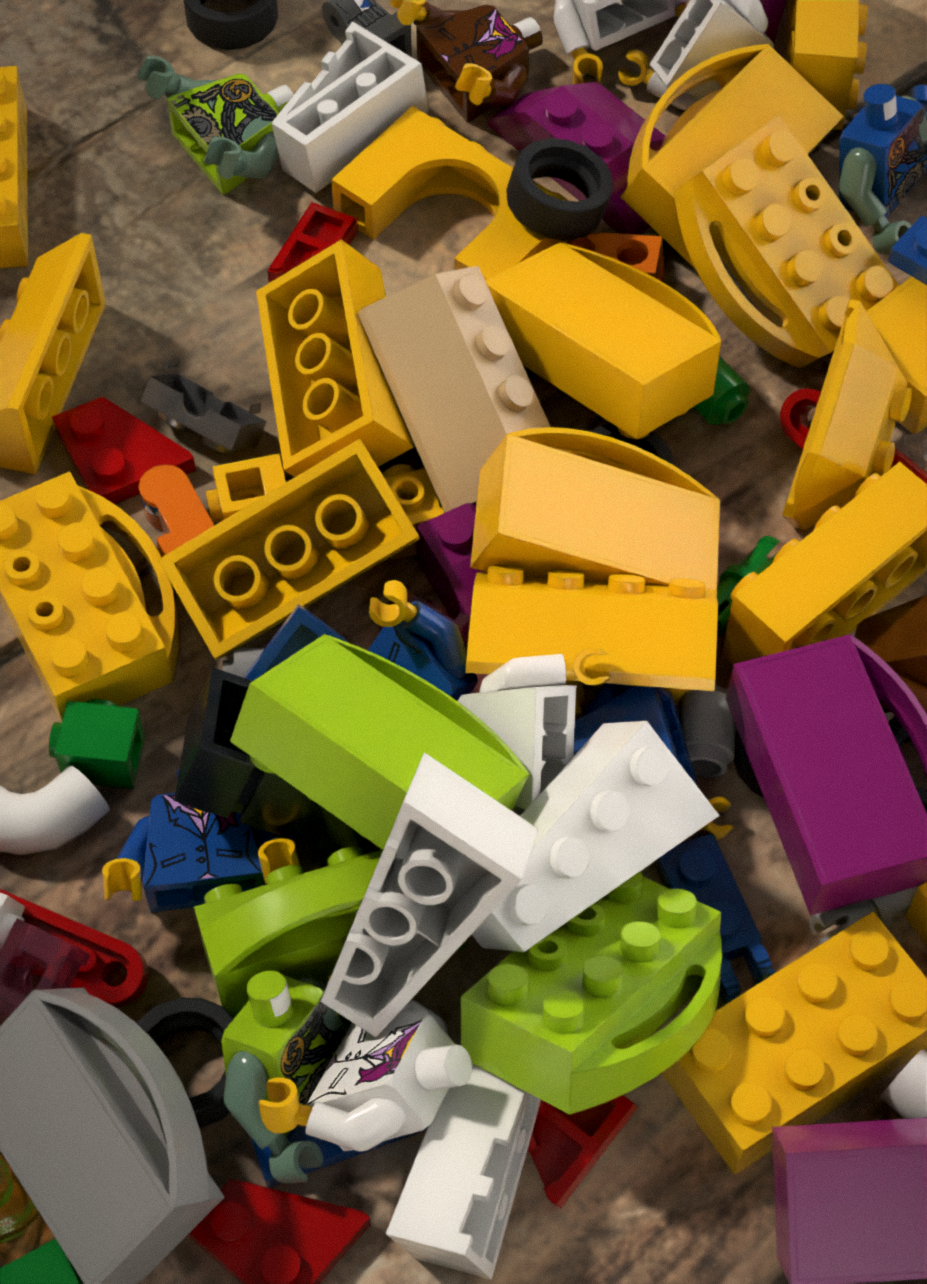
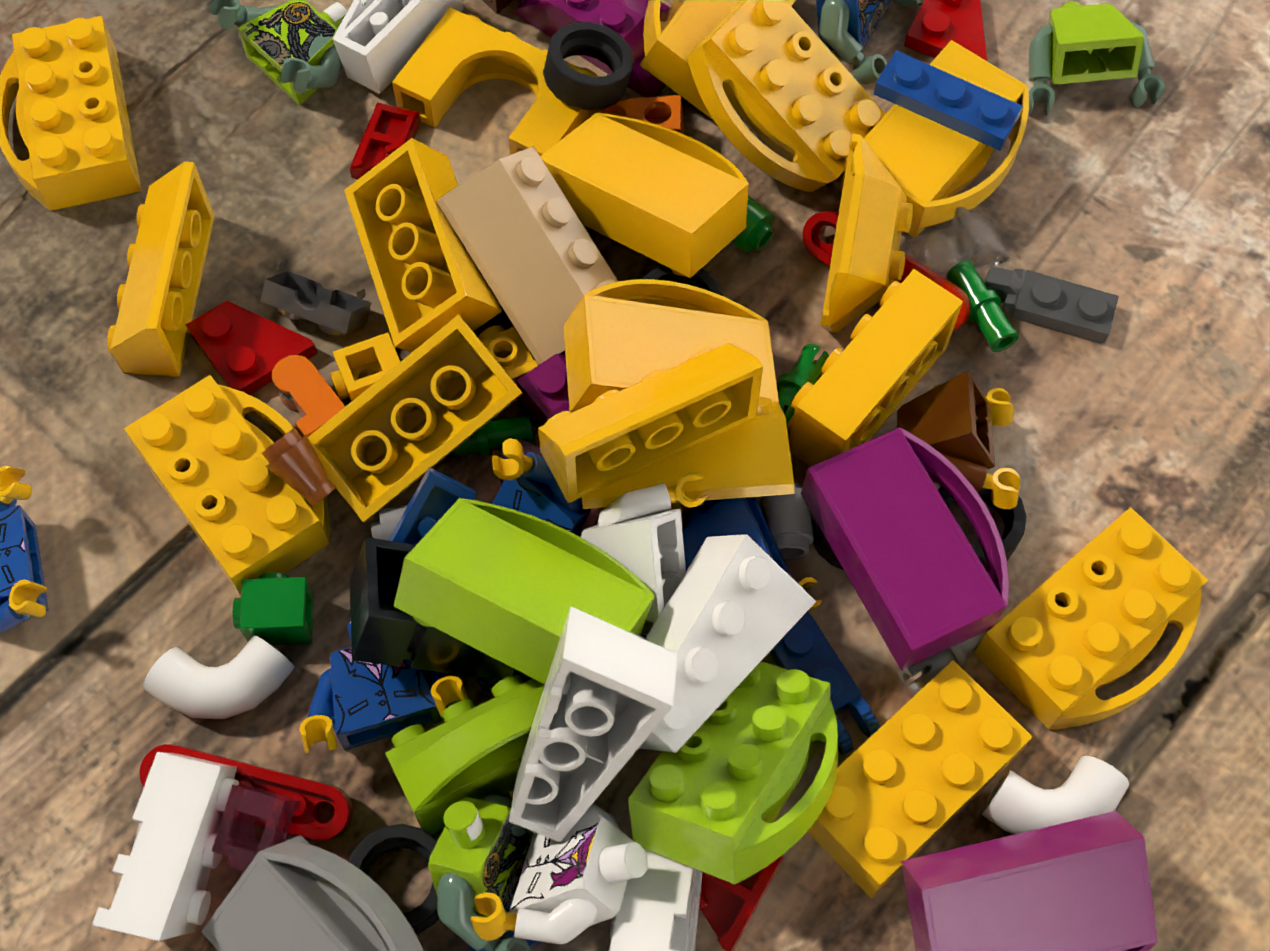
camera: 10 degrees left, 5 degrees up
(151, 582) = (298, 465): none -> dark orange cone
(371, 584) = (495, 433): none -> green pin
(560, 582) = (651, 419): none -> yellow slope

